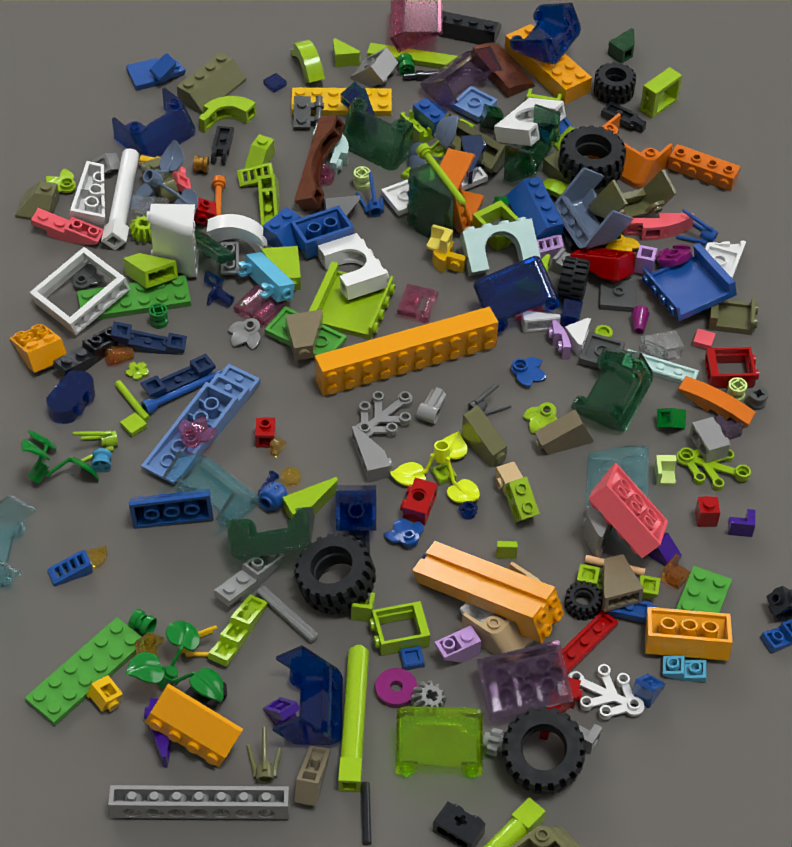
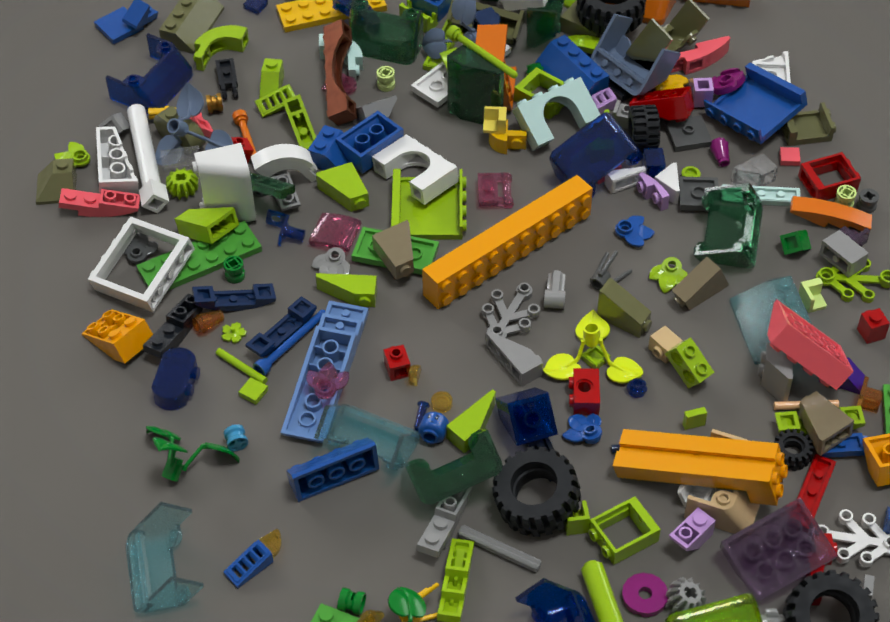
camera: 15 degrees left, 0 degrees up
(107, 438) = (231, 413): lime plant -> none
(255, 359) = (352, 289): none -> lime slope
(267, 276) = (334, 201): medium azure brick -> none
(303, 109) = (297, 26): dark grey plate -> none
(374, 207) = (410, 102): blue plant -> none
(412, 658) = (647, 558): blue tile -> none
(708, 233) = (748, 51): blue plant -> none

